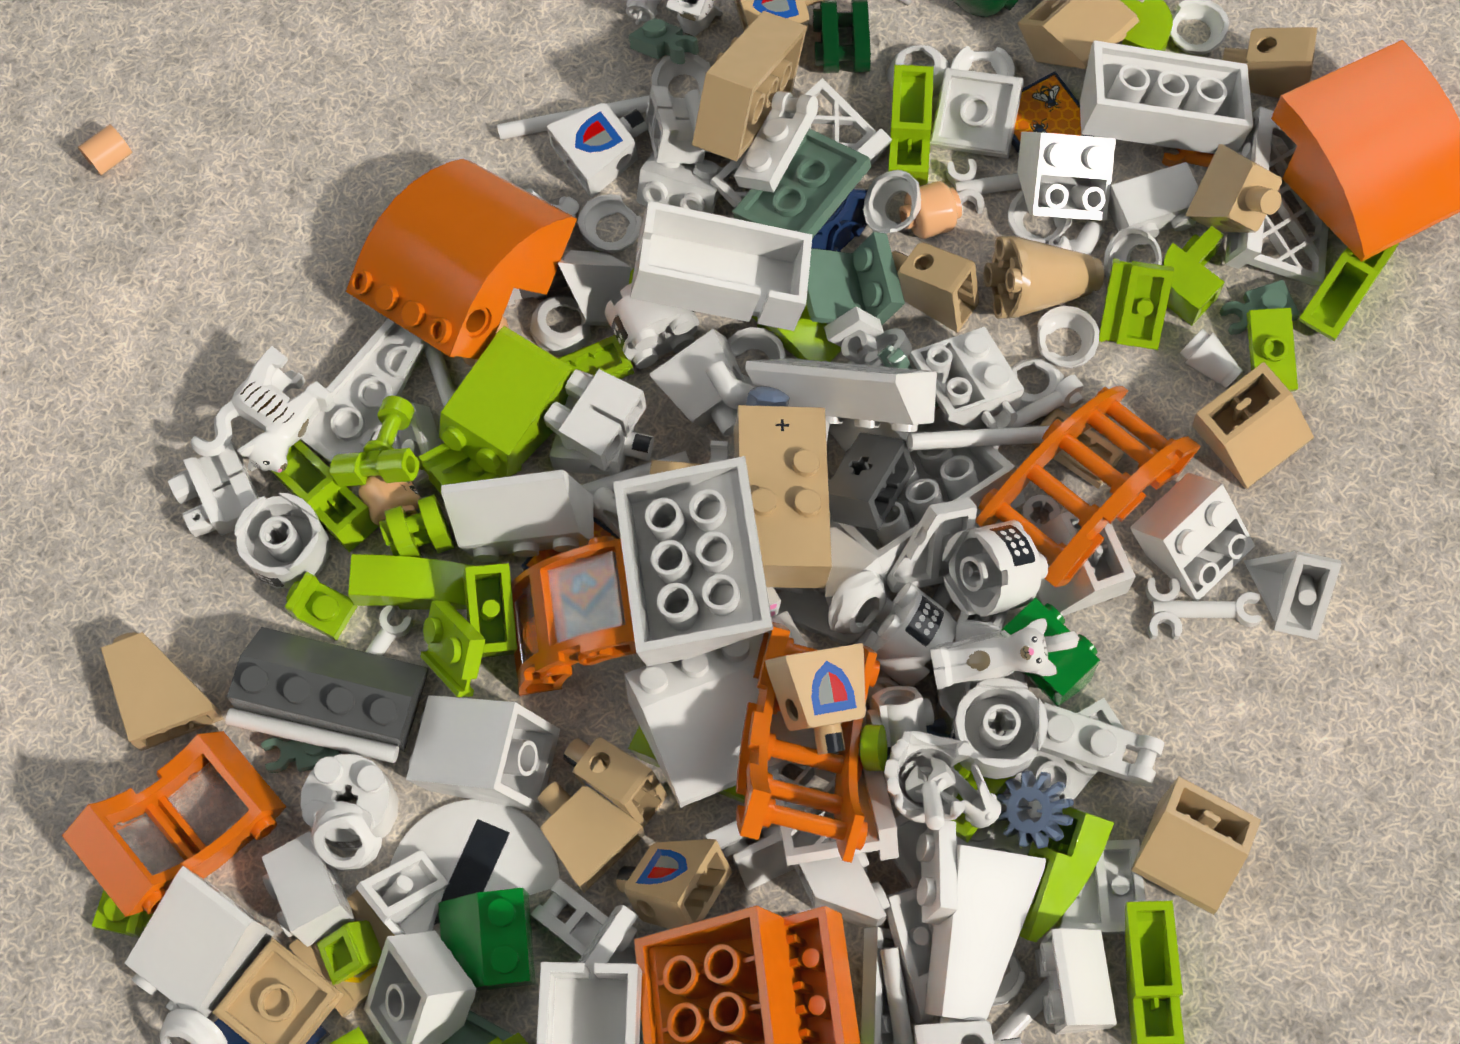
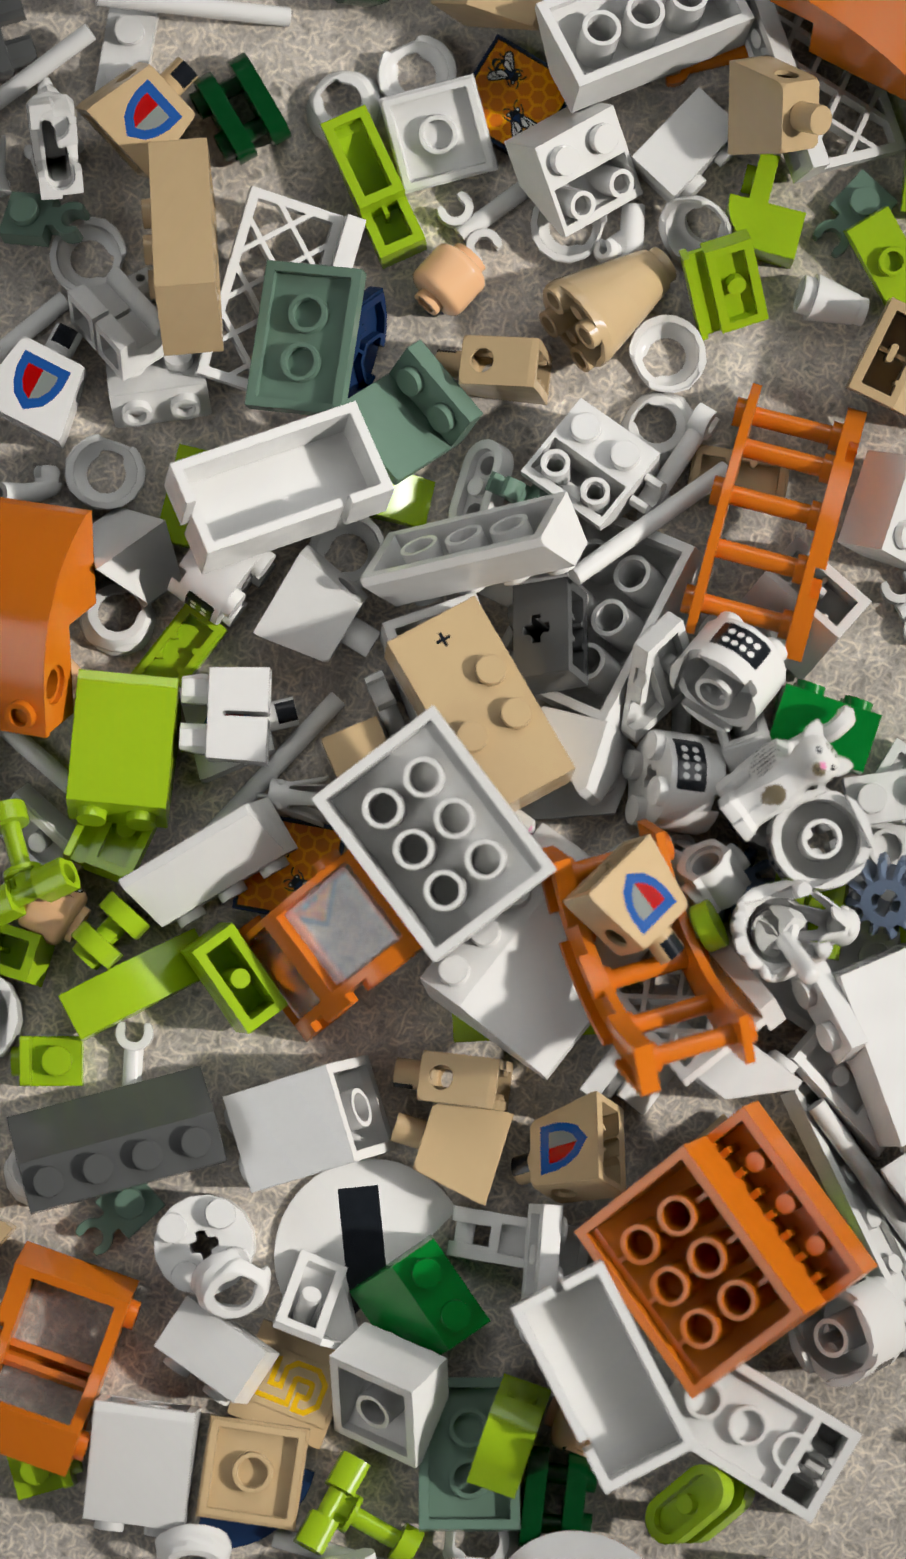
camera: 35 degrees left, 15 degrees up
(312, 735) = (127, 1199): white bar -> none
(350, 951) = (293, 1386): lime slope -> none
(453, 648) = (220, 1037): lime plate -> none
(730, 389) = (359, 614): white arm -> none
(767, 397) = (405, 611): sand blue tile -> none
(776, 141) = (249, 297): white plate -> none
(850, 598) = (604, 776): white piece -> none
(854, 331) = (441, 468): white tile -> none
(879, 197) = (389, 304): white piece -> none
(1043, 502) = (722, 574): white bush -> none

